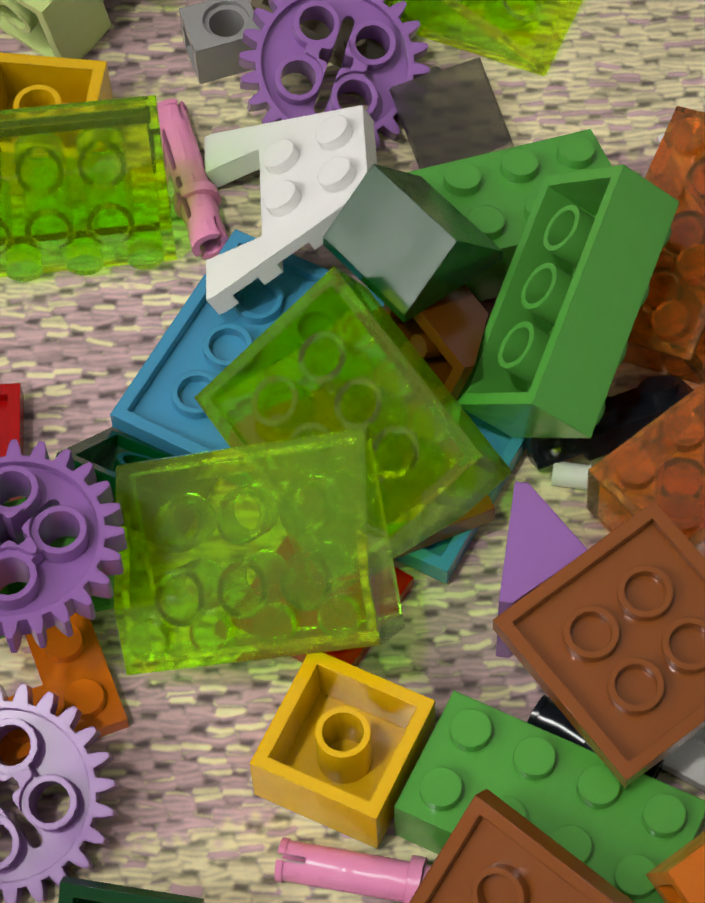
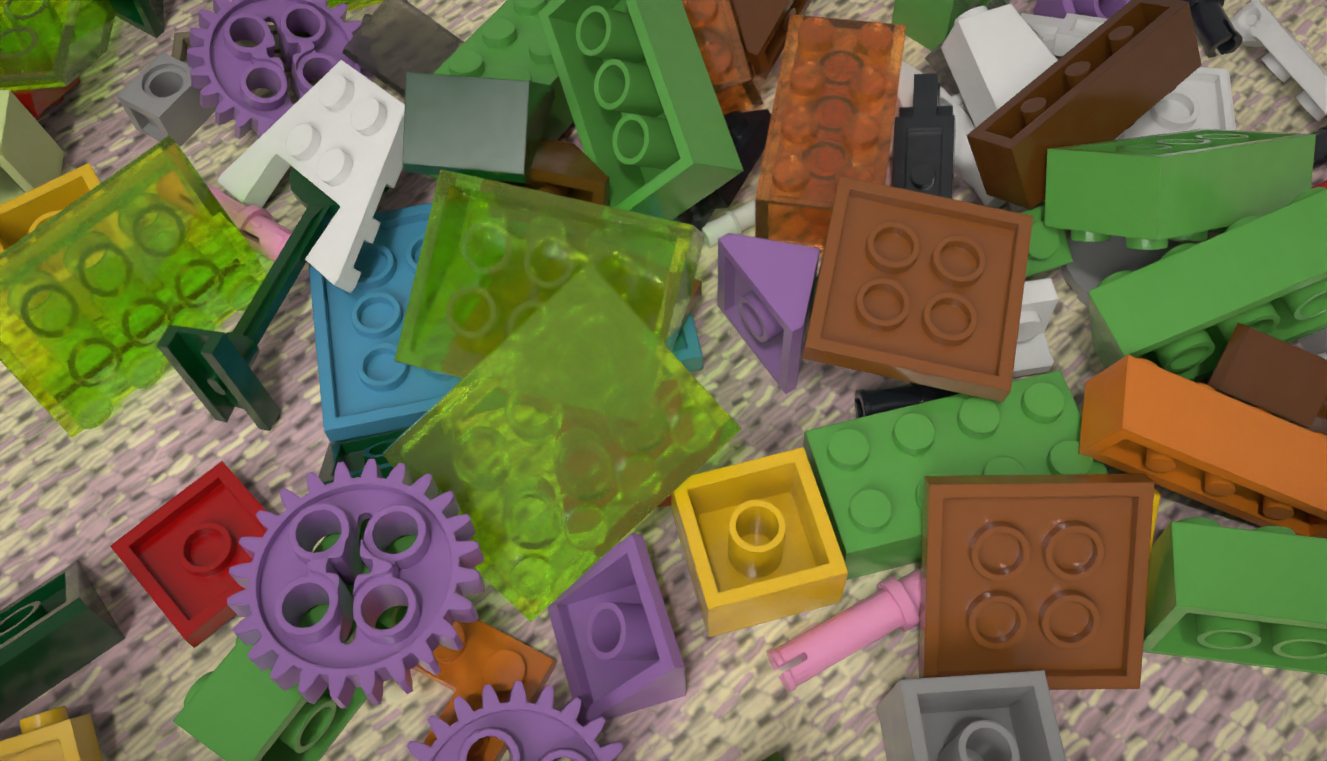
camera: 40 degrees left, 0 degrees up
(70, 309) = (220, 362): none -> dark green piece
(188, 737) = (618, 636): none -> medium lavender slope

